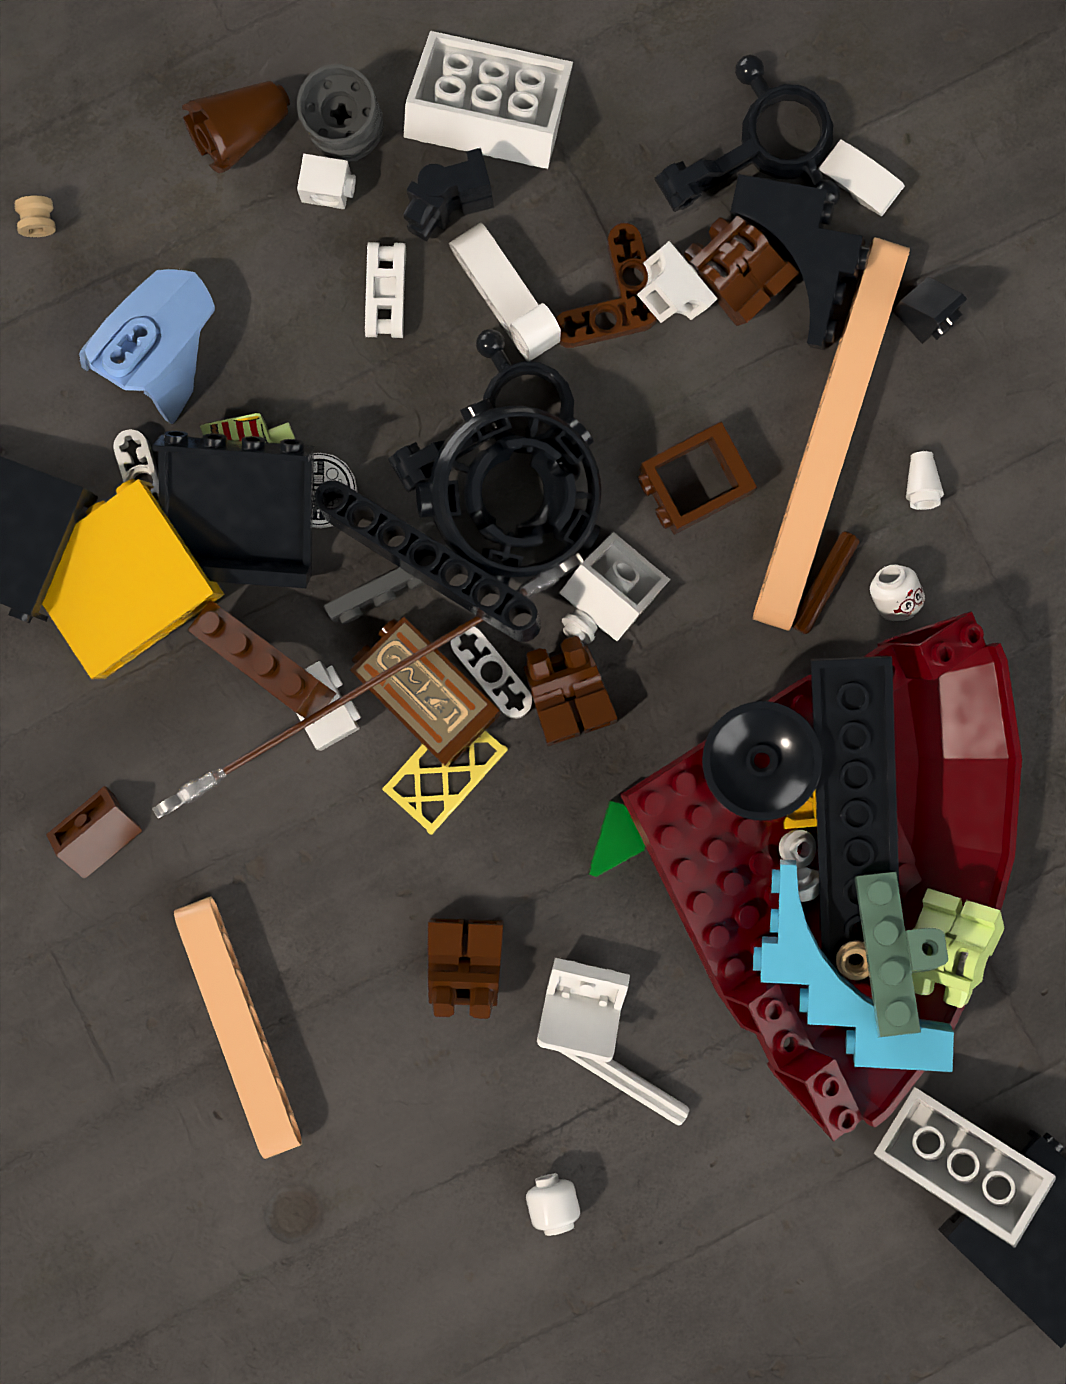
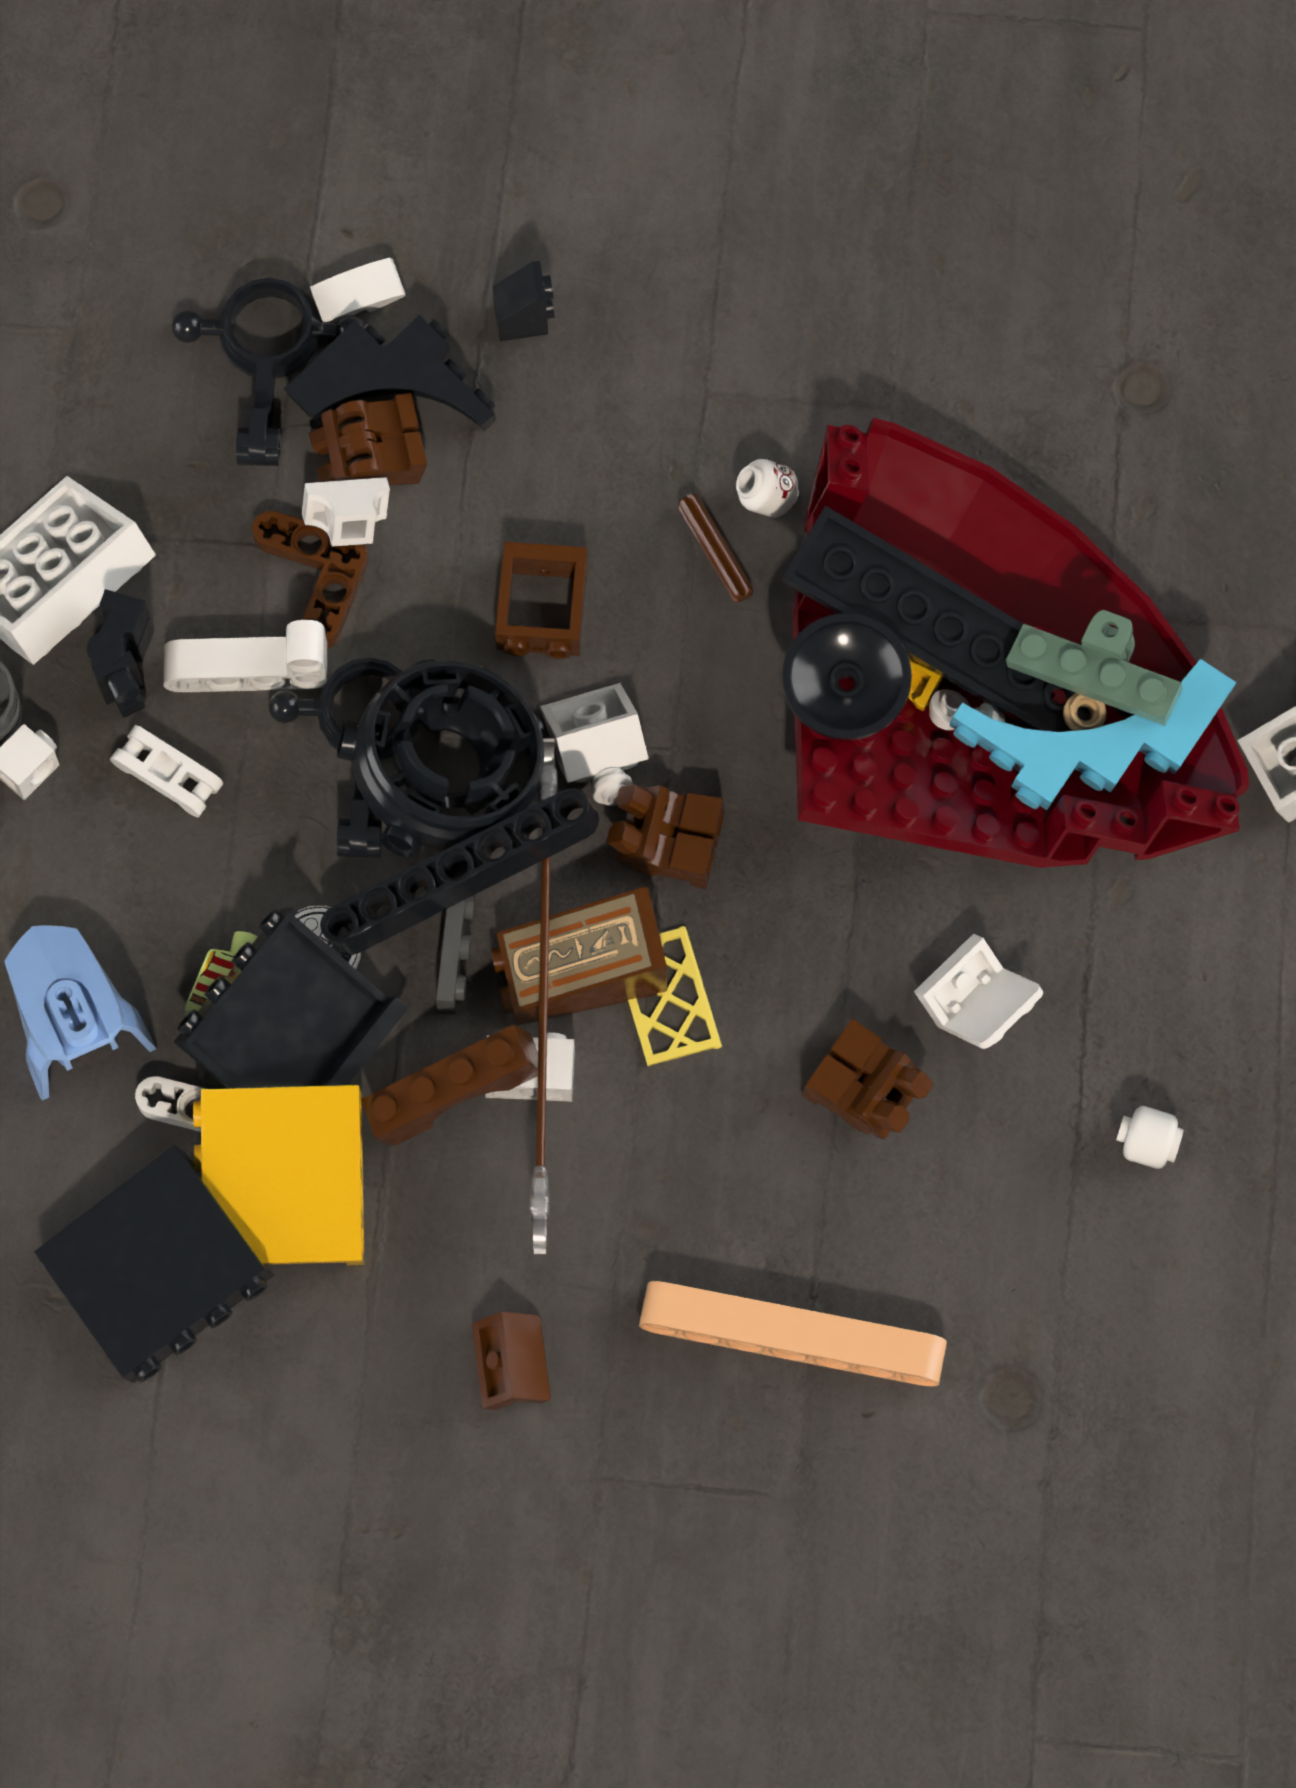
camera: 55 degrees left, 15 degrees down
(501, 700) = (611, 879): white beam -> none
(616, 841) = (835, 867): green slope -> none
(636, 1087) = (1072, 1006): white axle -> none
(831, 435) = (583, 462): light nougat beam -> none
(923, 482) = (679, 406): white cone -> none
(970, 939) = (1128, 596): yellowish green hips -> none

